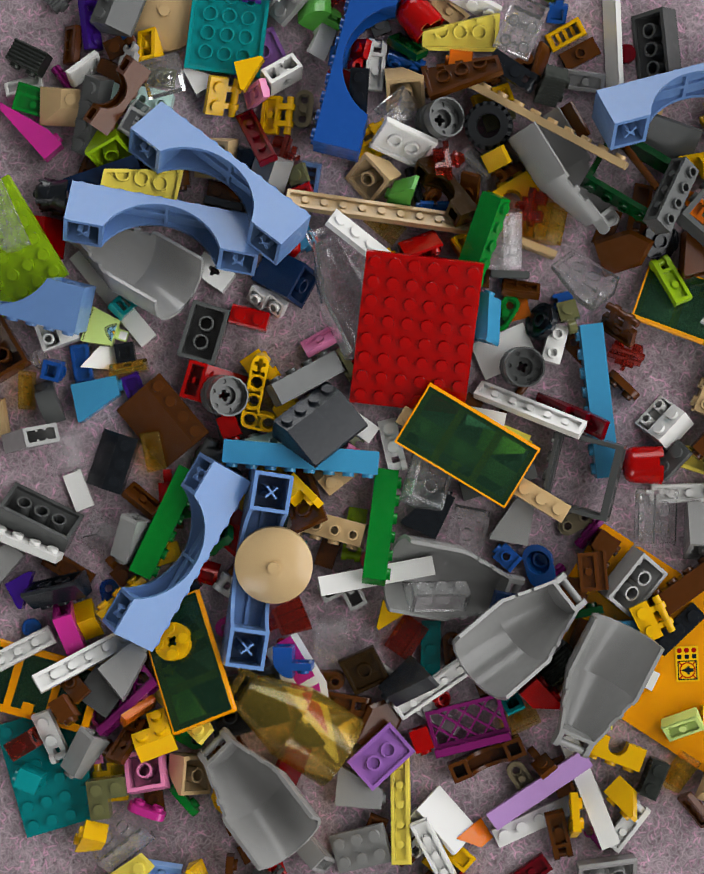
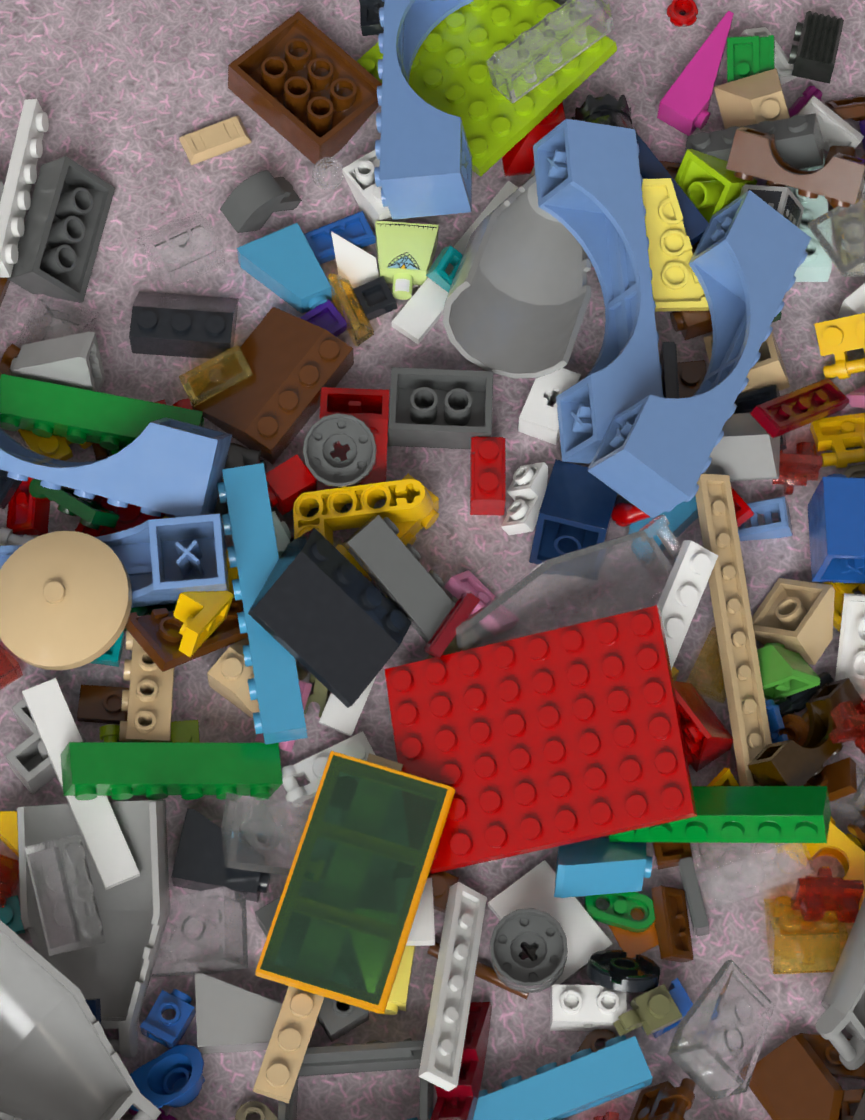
camera: 75 degrees right, 20 degrees down
(26, 390) = (280, 161): clear yellow slope -> none
(30, 437) = (193, 183): light grey slope -> none
(56, 370) = (315, 203): blue brick -> none
(78, 490) = (122, 283): white tile -> none
(141, 500) = (132, 373): reddish brown plate -> none
(298, 175) = (758, 494): olive plate -> none
(337, 360) = (447, 629): none -> dark red tile
(538, 249) = (755, 935): tan tile -> none

